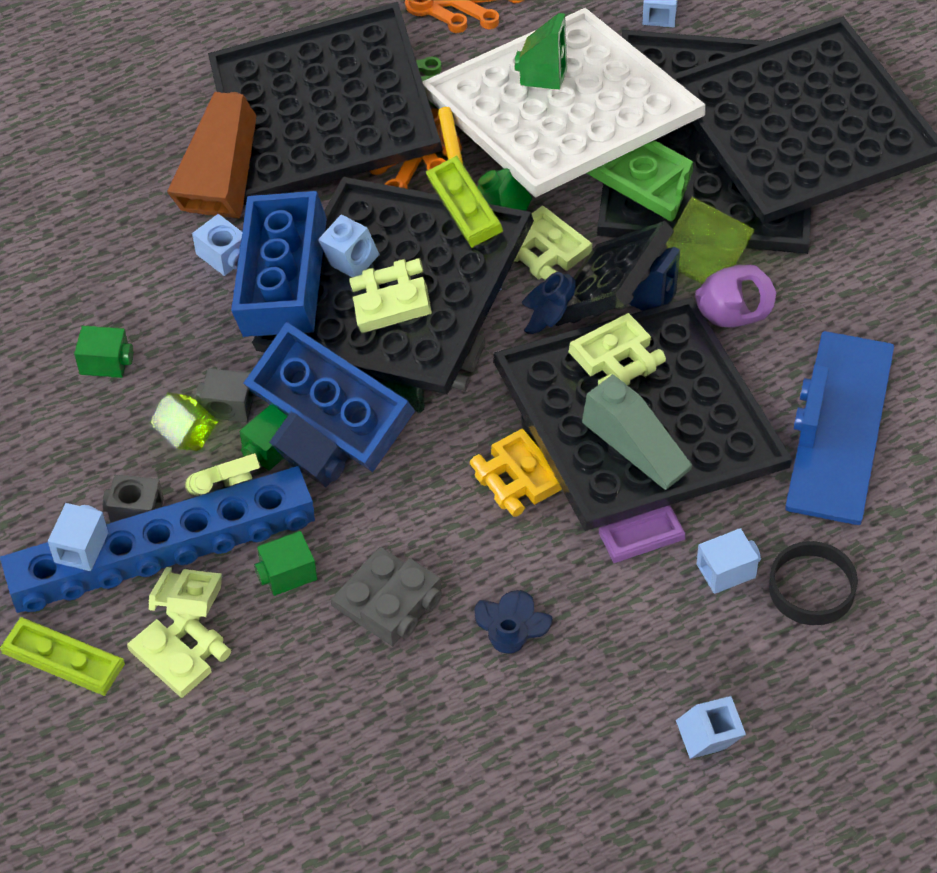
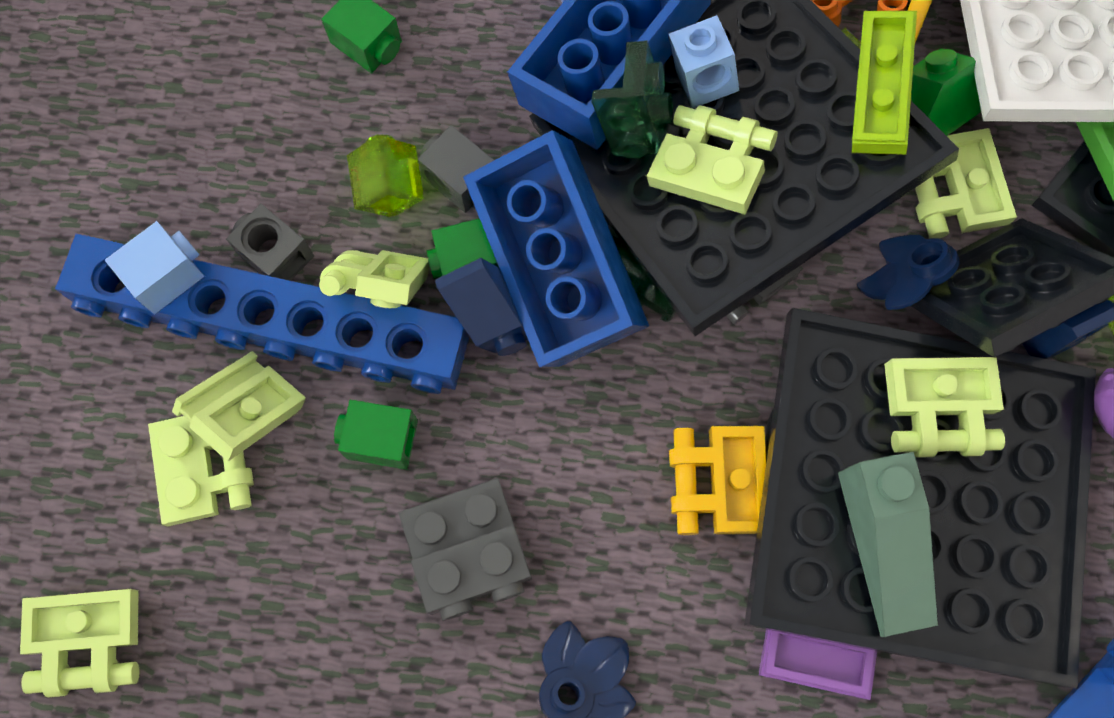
camera: 35 degrees right, 20 degrees up
(62, 656) = (80, 392): lime tile -> none
(168, 774) = (79, 623): none -> yellowish green plate
(325, 290) = (638, 112): none -> clear green bracket

